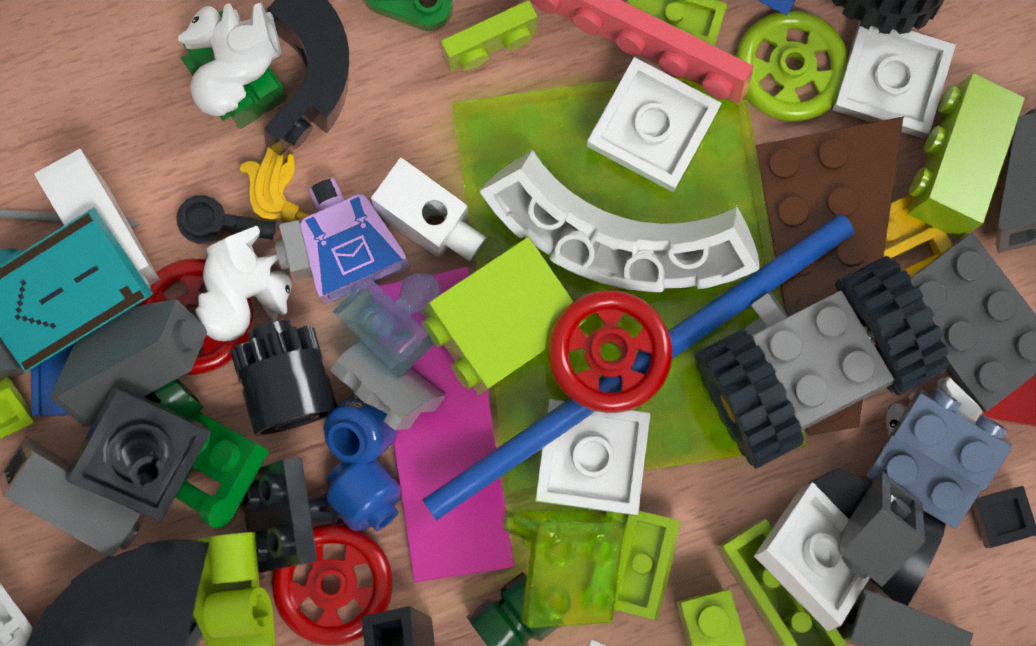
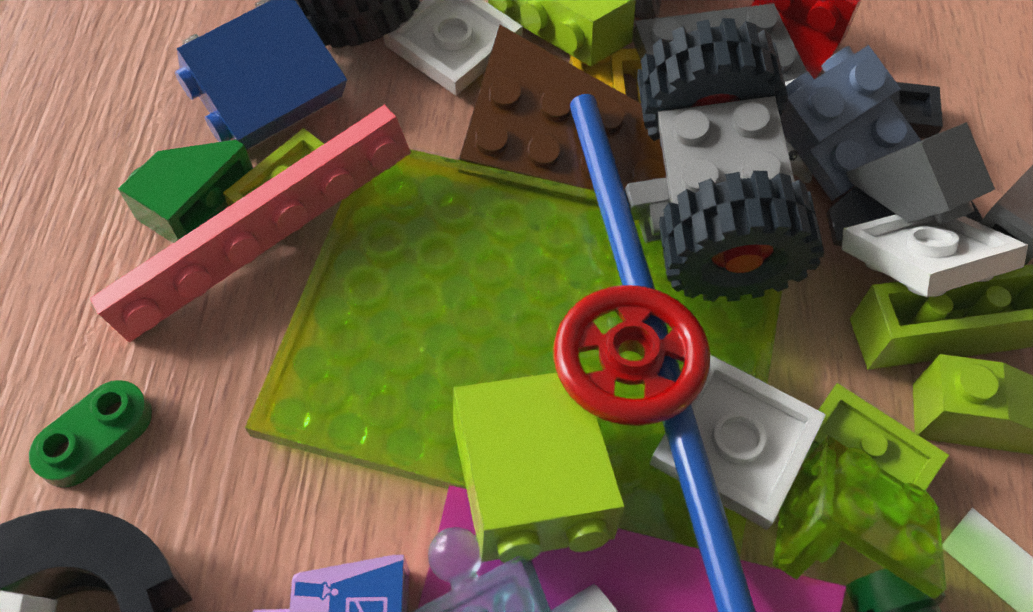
camera: 65 degrees left, 20 degrees down
(411, 198) = (359, 504): white torso -> none
(473, 45) = (193, 374): lime plate -> none
(614, 247) = (508, 319): white brick -> none
(653, 124) = (390, 230): white plate -> none
(821, 38) = (382, 77): lime plate -> none

